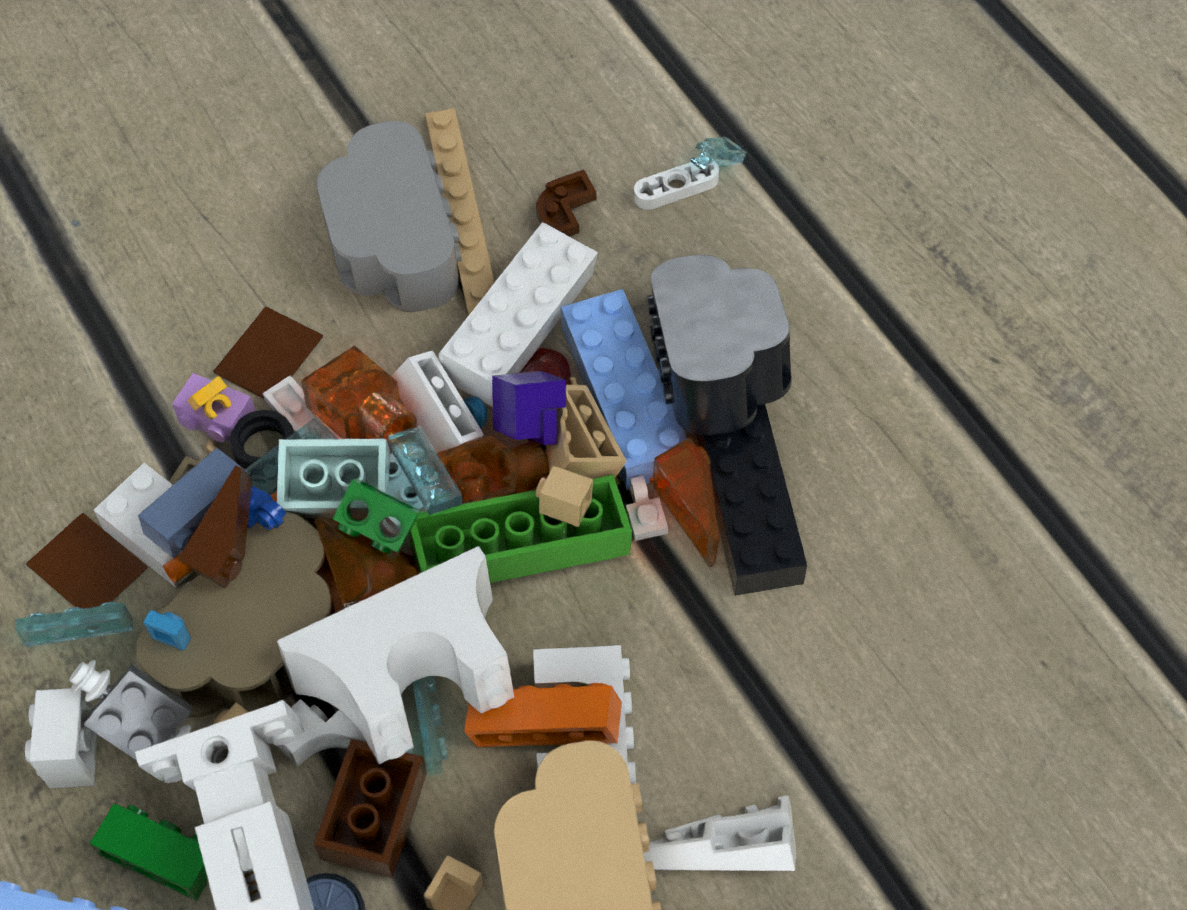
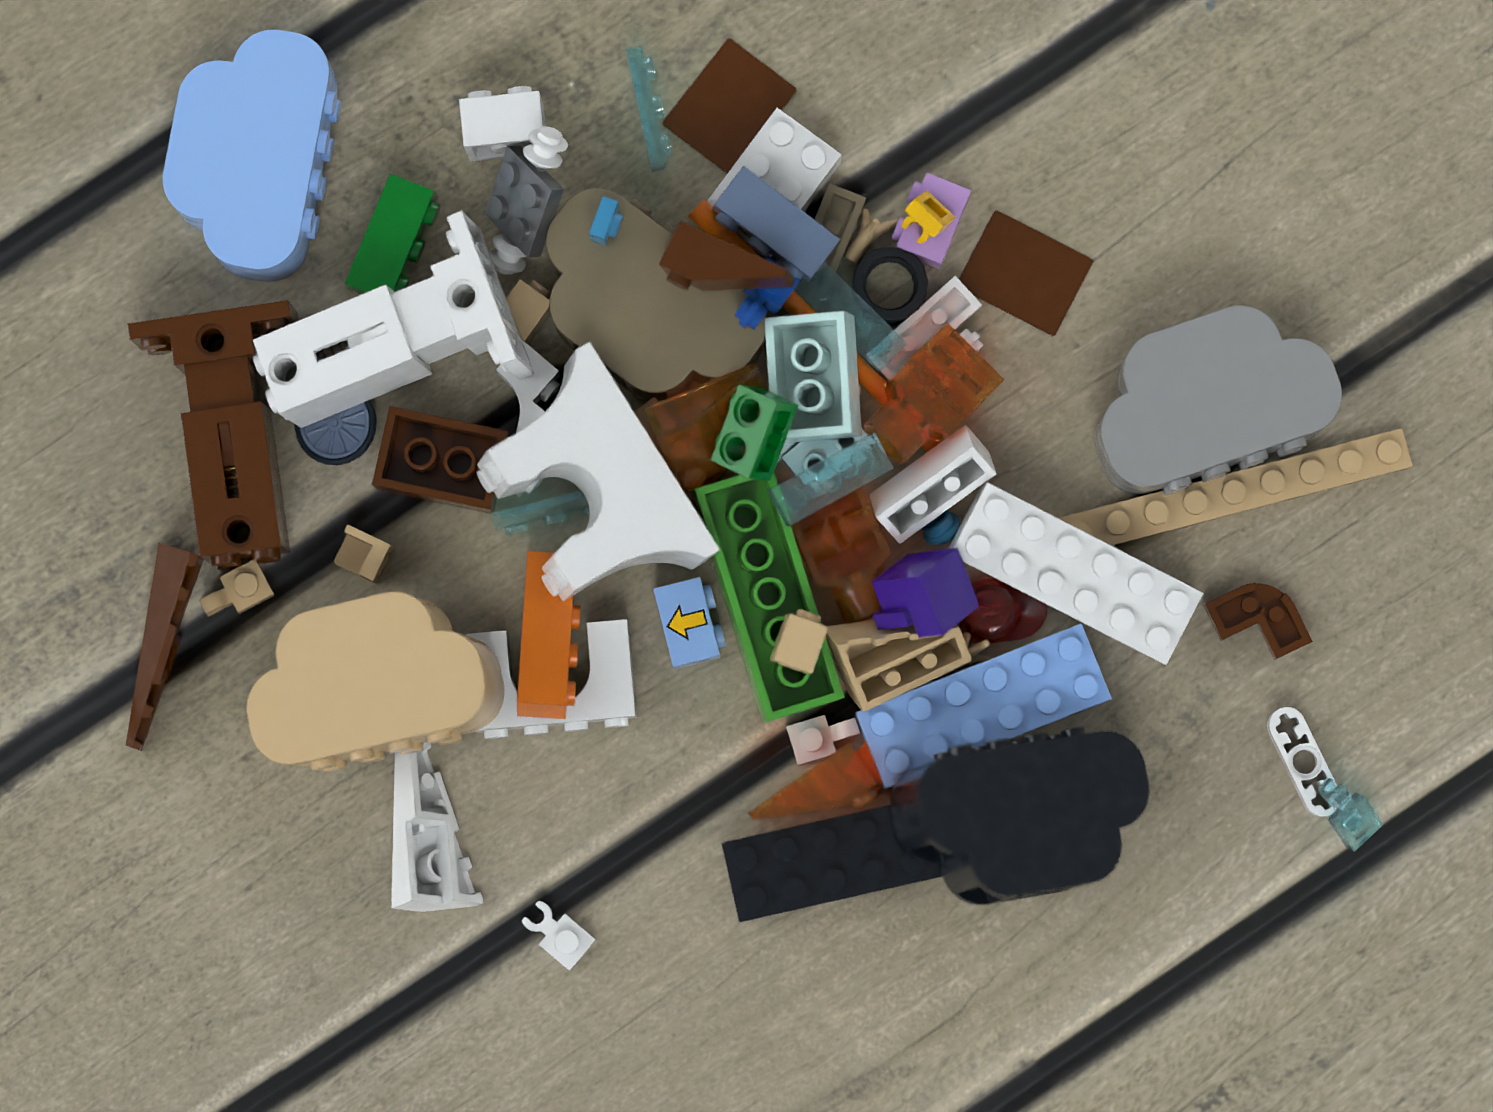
camera: 90 degrees right, 25 degrees up
(539, 607) = (688, 623): none -> light blue brick
(819, 725) = (563, 939): none -> white plate

